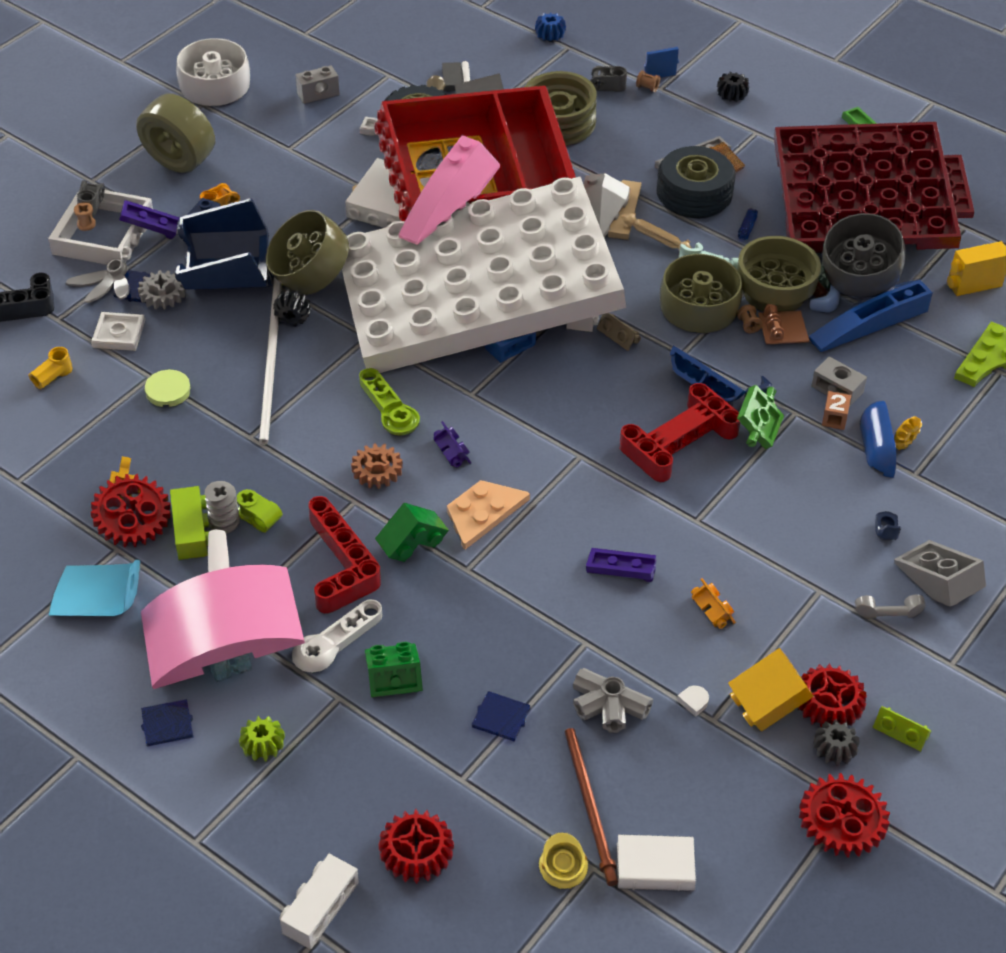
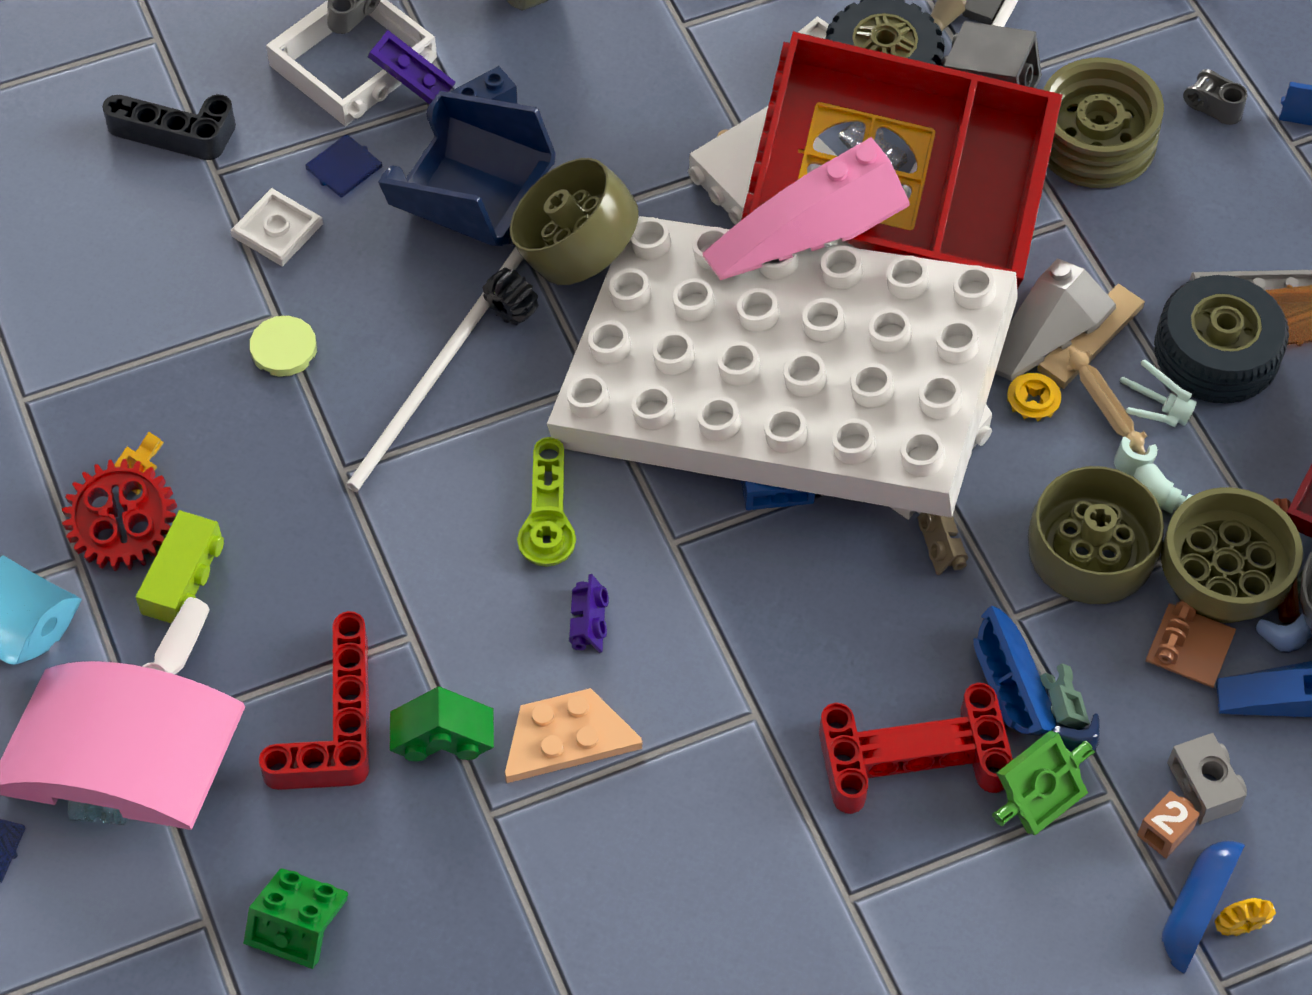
camera: 30 degrees right, 10 degrees up
(56, 365) = (166, 246): yellow piece -> none
(84, 214) = (331, 29): medium nougat bush -> none
(106, 278) = (314, 137): light grey plant -> none
(161, 290) = (362, 187): light grey gear -> none
(221, 194) = (528, 72): light orange piece -> none
(222, 506) = (225, 568): light grey piece -> none
(257, 510) = (275, 595): lime piece -> none
(261, 738) = (85, 926): lime gear -> none
(335, 638) = (252, 833): white beam -> none
(377, 465) = (457, 609): nougat gear -> none
(621, 564) = (693, 916): dark purple hinge -> none
(626, 247) = (1035, 385): none -> yellow gear
(648, 81) = (1275, 126): medium nougat bush -> none
(695, 223) = (1177, 407): none -> light aqua plant
(743, 379) = (1066, 702): none -> sand green plate
(747, 223) = (1259, 442): clear blue axle -> none
(749, 319) = (1146, 608): medium nougat bush -> none

